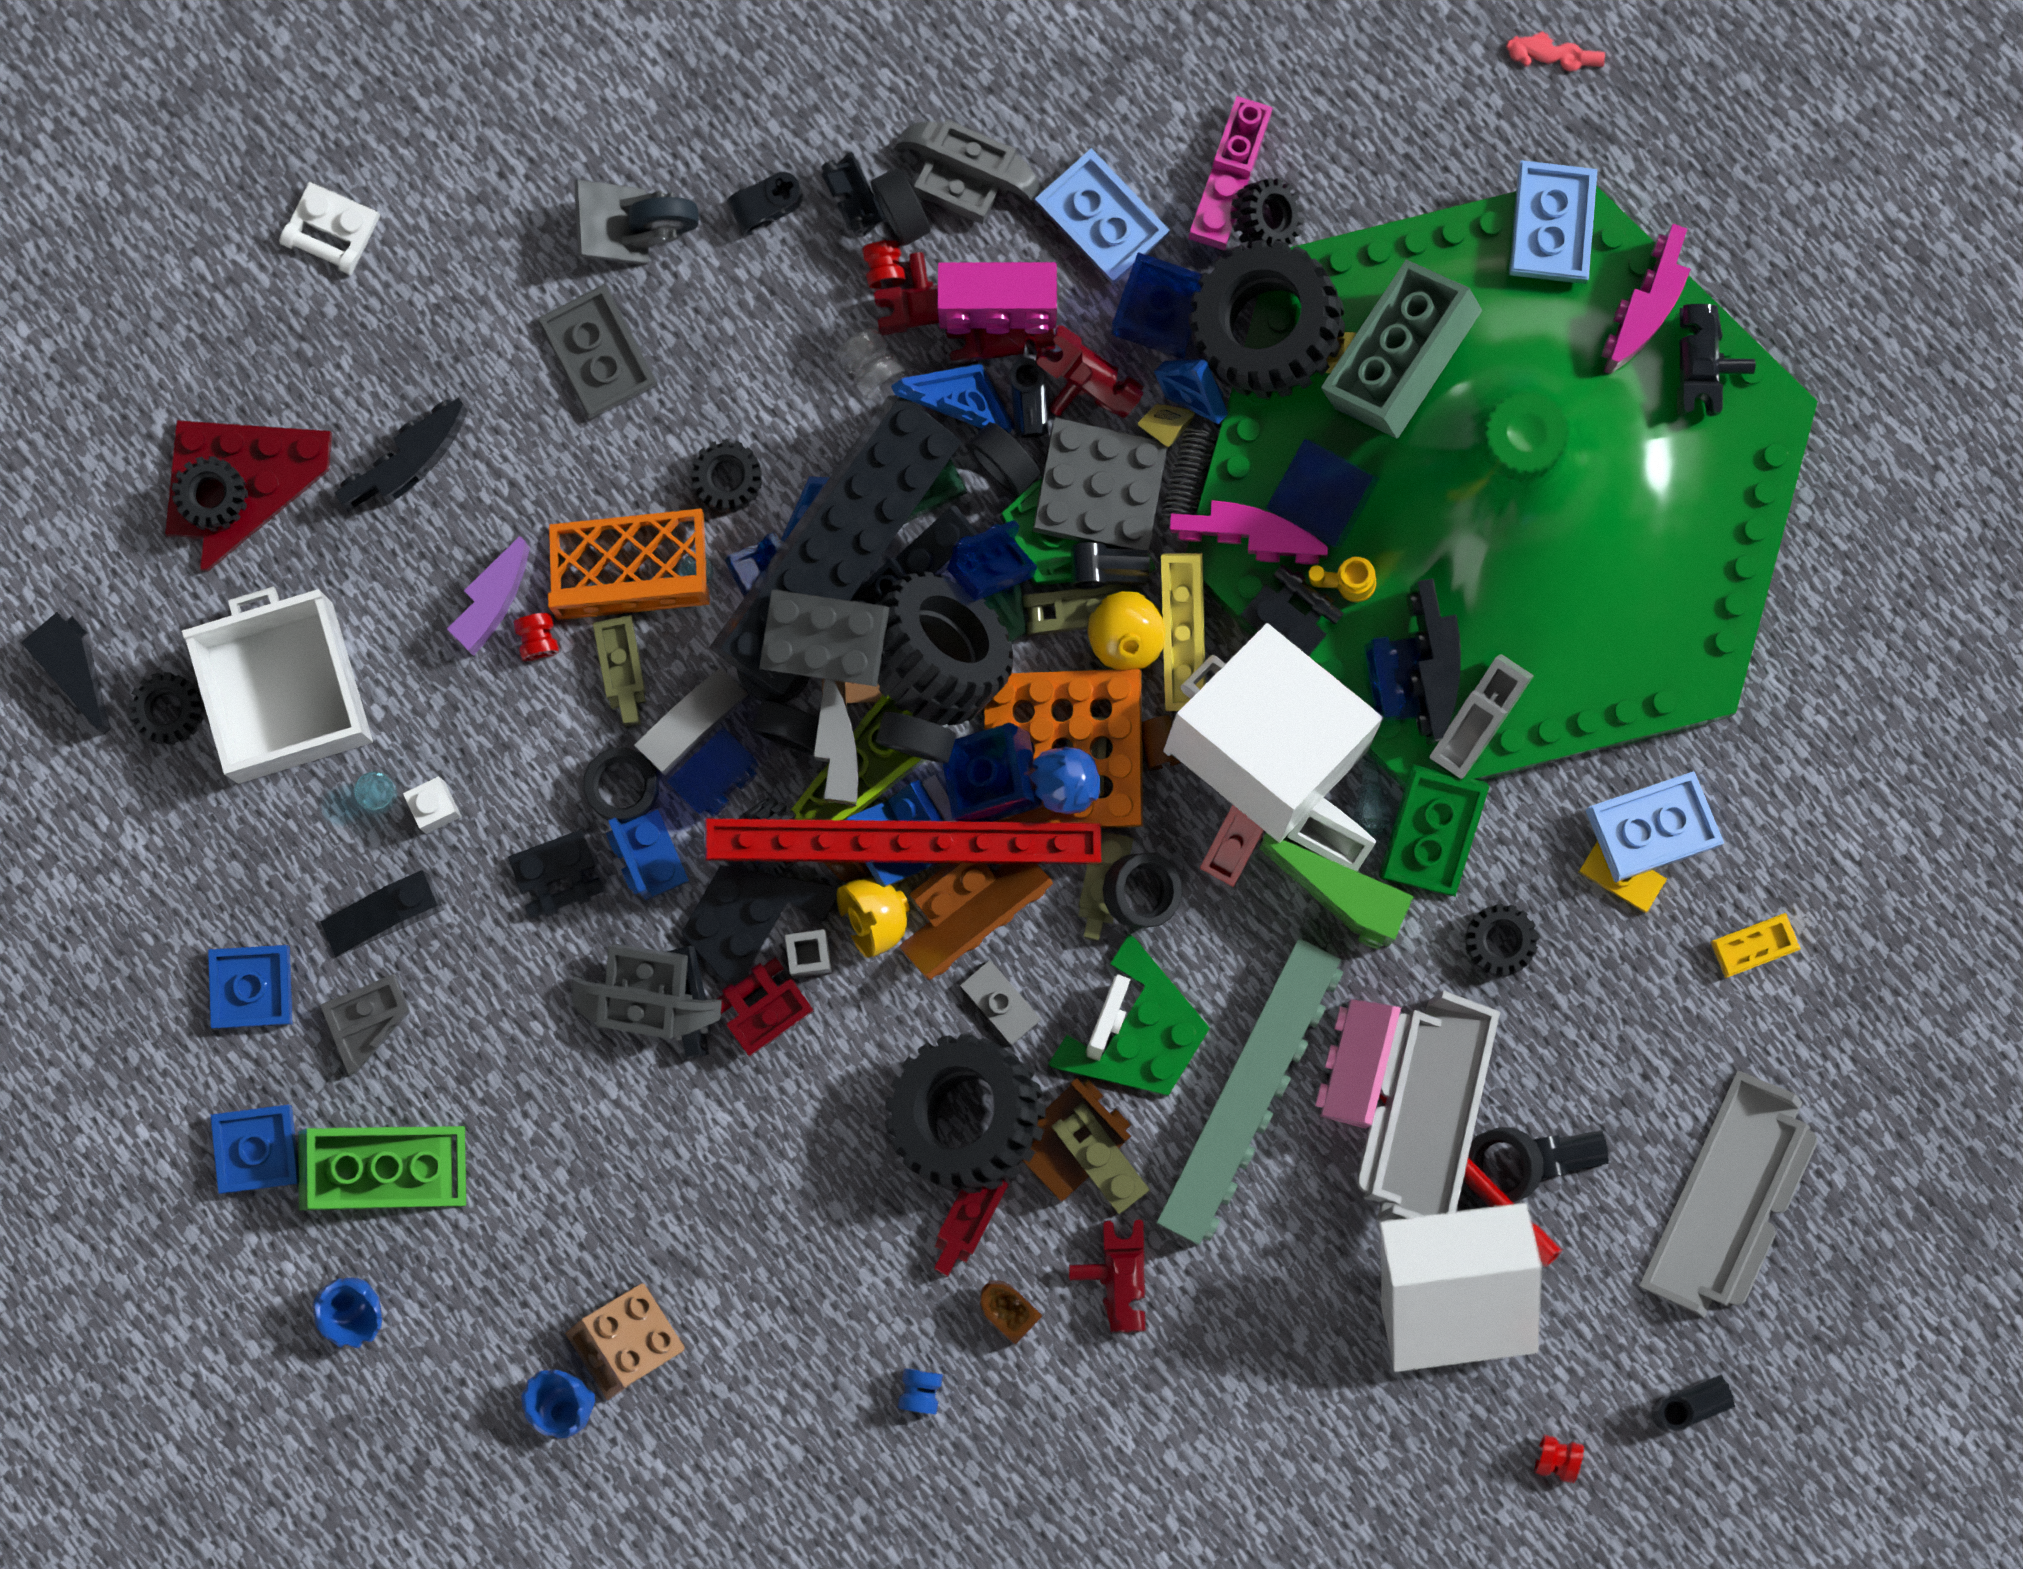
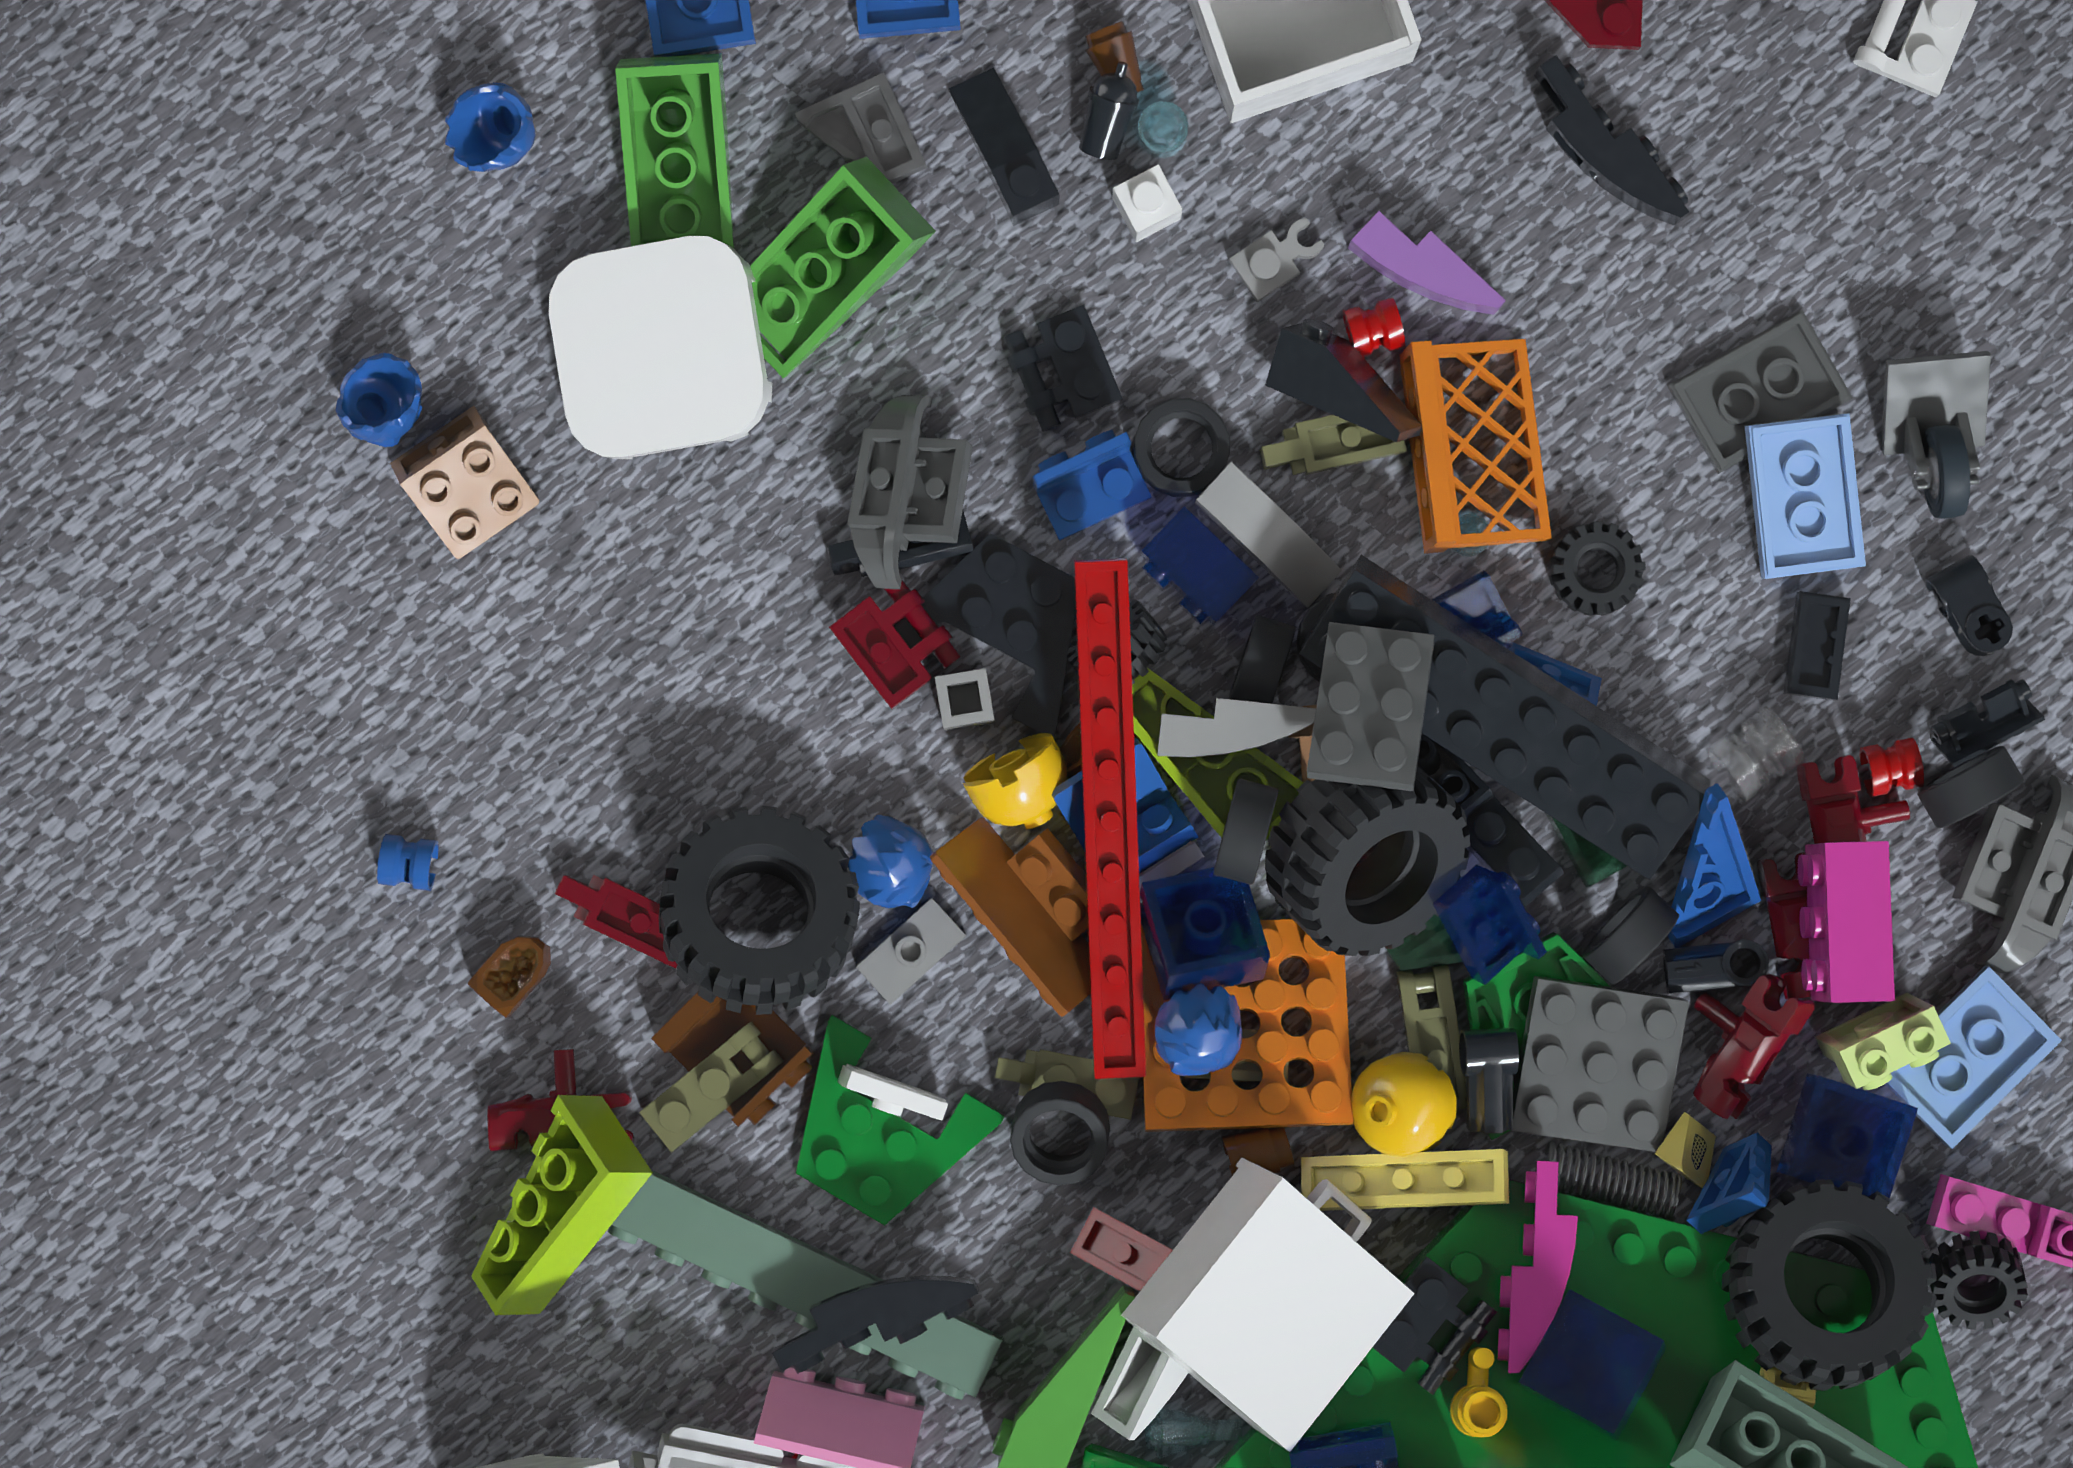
camera: 90 degrees right, 5 degrees up
(319, 826) = (1112, 46): none -> reddish brown cone
(361, 832) = (1109, 114): none -> black piece
(468, 1054) = (832, 261): none -> bright green slope
(482, 714) = (1270, 263): none -> light grey plate
(526, 1183) = (658, 347): none -> white tile
(573, 664) = (1337, 379): none -> black slope
(677, 321) = (1805, 496): none -> light blue tile
(790, 316) = (1817, 645): none -> black plate
(931, 1013) = (891, 862): none -> blue hair
(1088, 275) = (1884, 1041): none -> yellowish green plate
(1181, 1264) = (562, 1208): none -> lime wedge
(1269, 1016) = (892, 1304): none -> black slope

